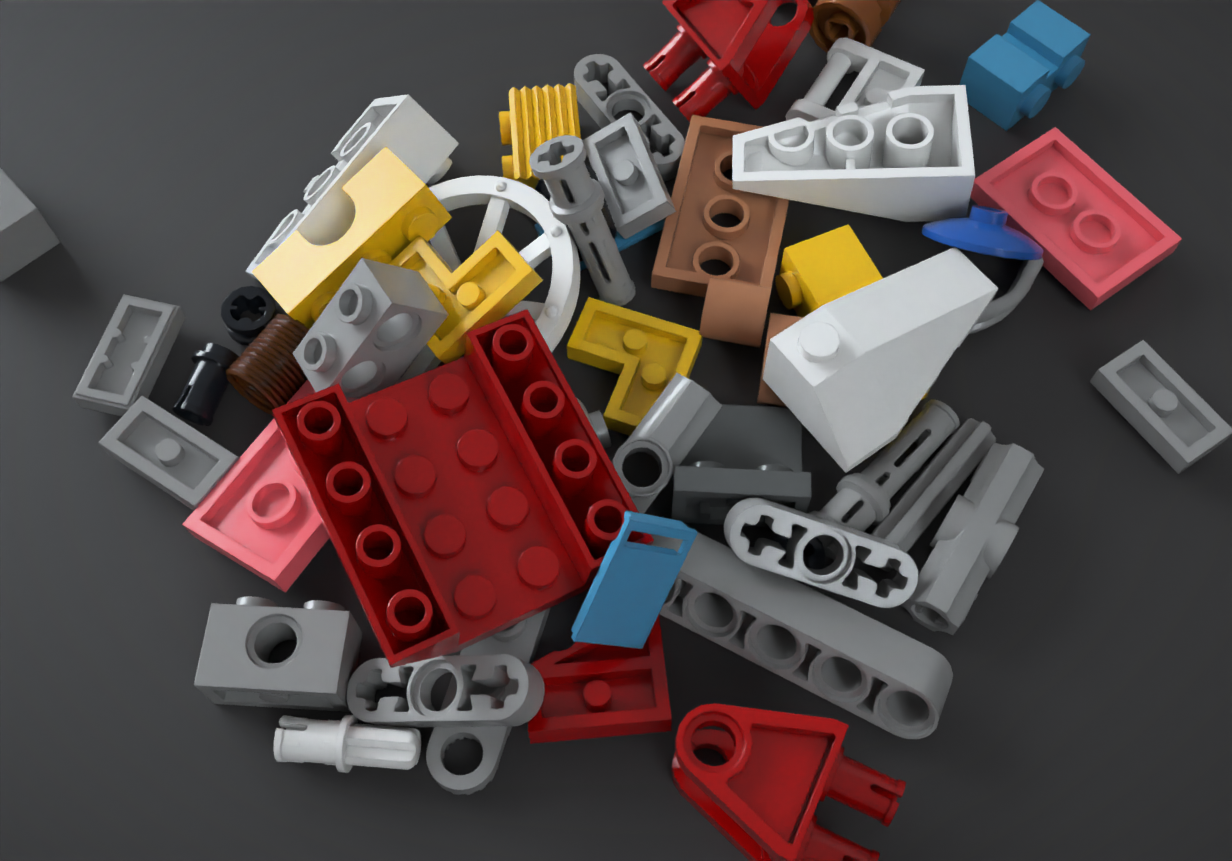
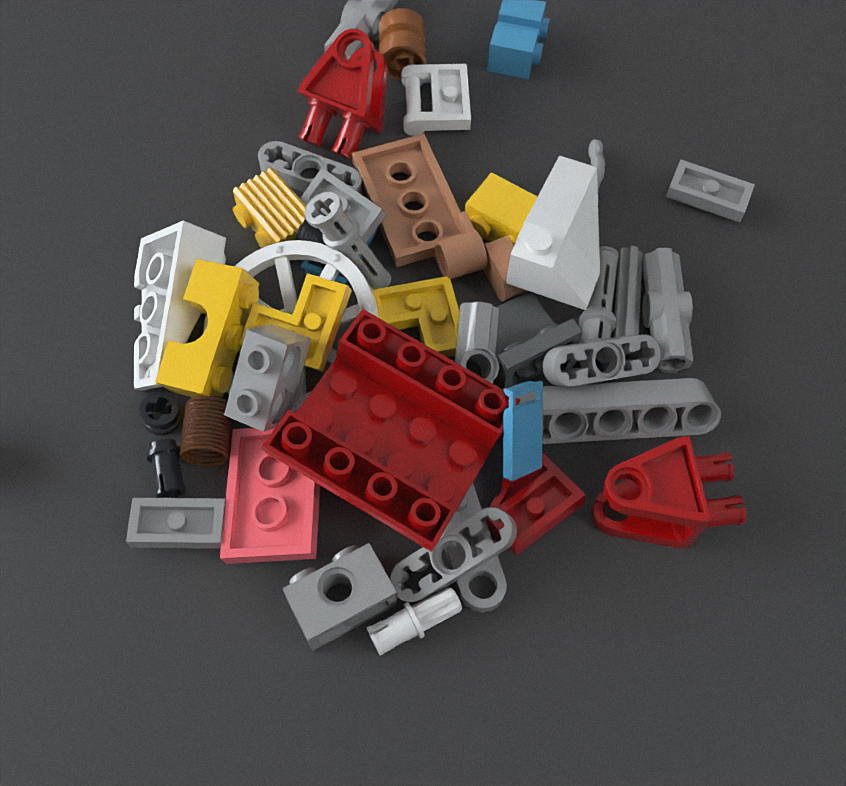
camera: 35 degrees left, 0 degrees up
(129, 355) = (100, 480): light grey plate -> none
(882, 160) = (481, 126): white wedge -> none
(984, 233) = (564, 142): blue dish -> none
(1081, 217) = (599, 109): coral plate -> none

